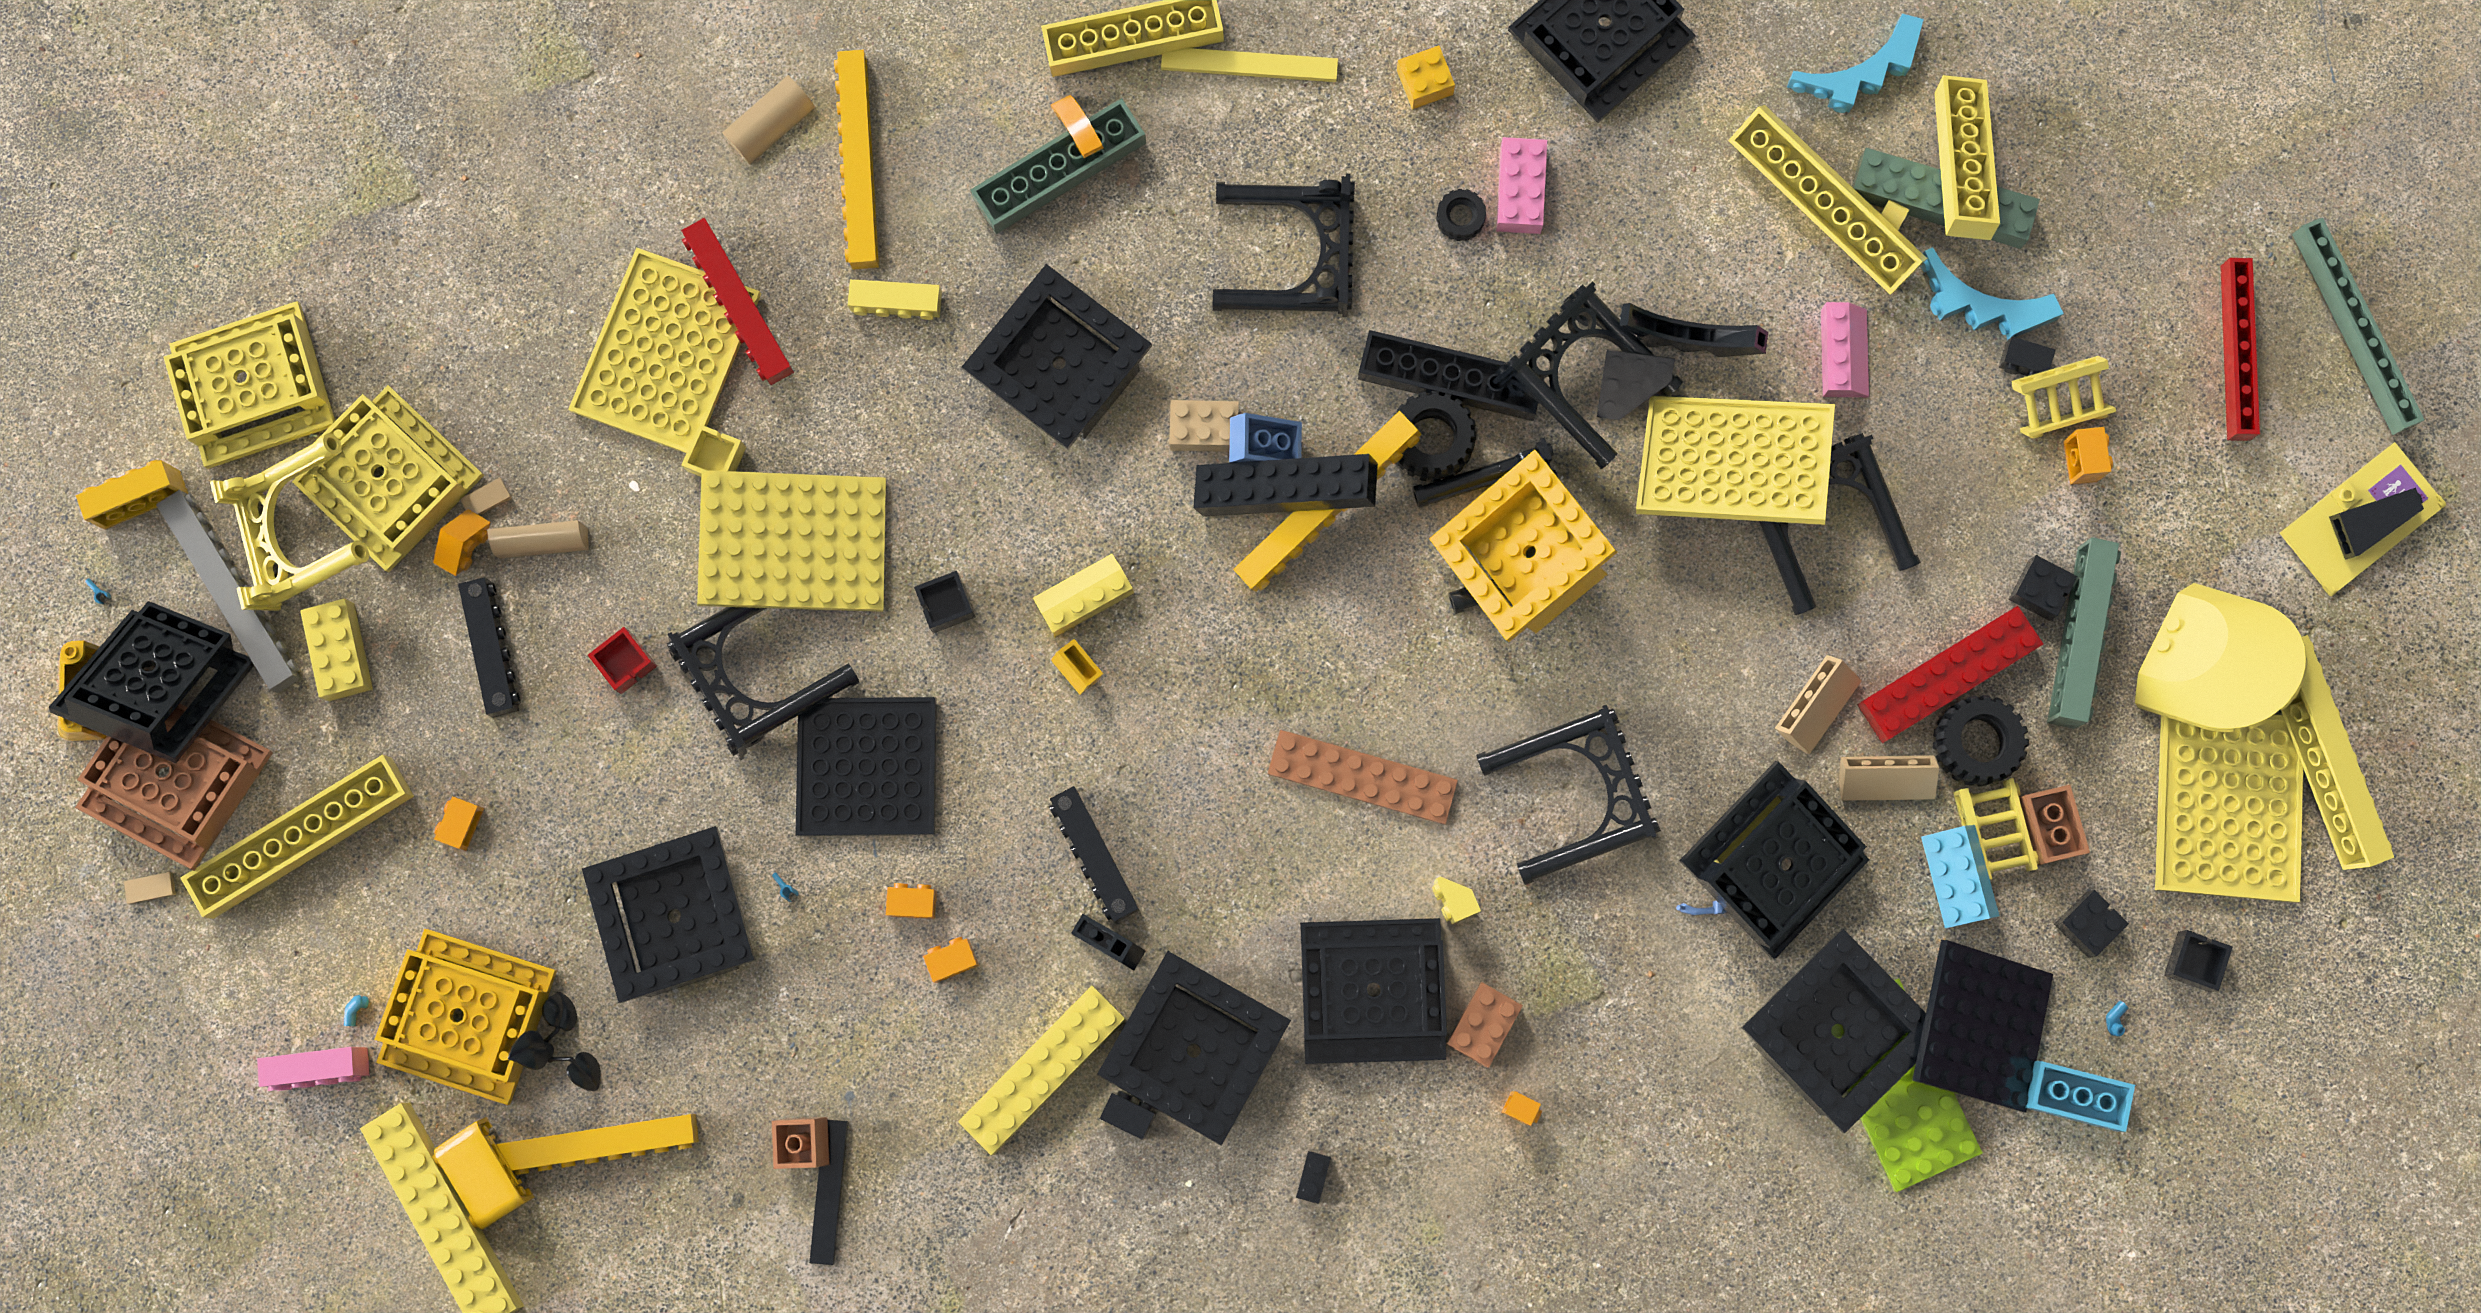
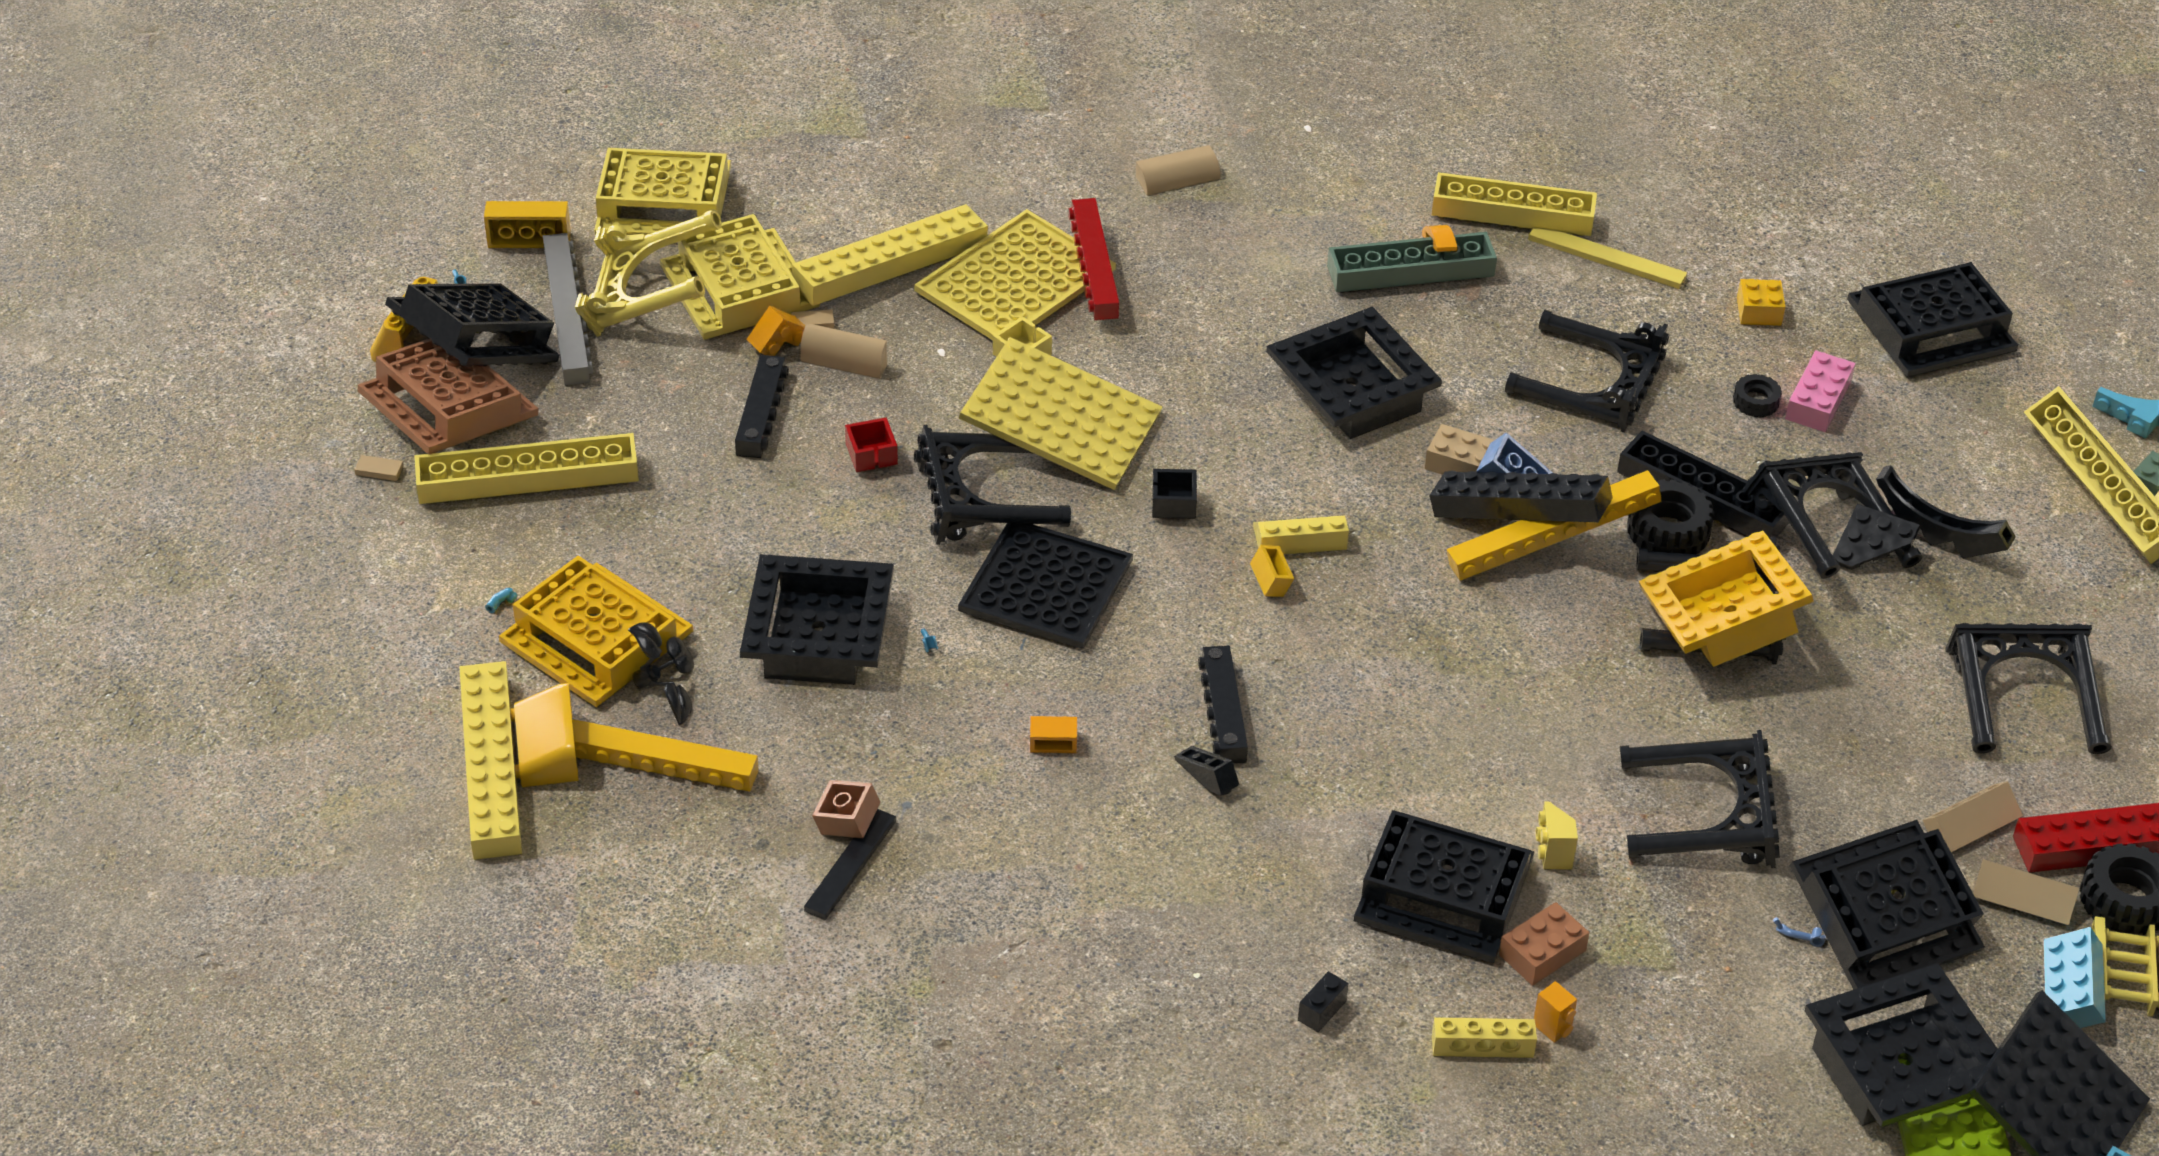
camera: 15 degrees right, 35 degrees down
(313, 1068) = (445, 615): bright pink brick -> none
(336, 650) = (632, 368): light yellow brick -> none
(458, 823) = (667, 506): light orange piece -> none
(525, 381) = (888, 254): none -> light yellow brick
(857, 159) = (1239, 214): yellow brick -> none
(894, 299) = (1229, 299): light yellow brick -> none
(911, 902) = (1038, 683): light orange piece -> none
(1042, 1070) = (1098, 837): light yellow brick -> none
(1128, 1115) = (1165, 890): black piece -> none
(1153, 1056) = (1226, 841): black piece -> none
(1362, 777) = (1503, 735): nougat plate -> none
(1467, 1157) = (1484, 1037): none -> light yellow brick
(1736, 459) = (1953, 605): light yellow plate -> none
(1844, 350) = (2087, 584): bright pink slope -> none

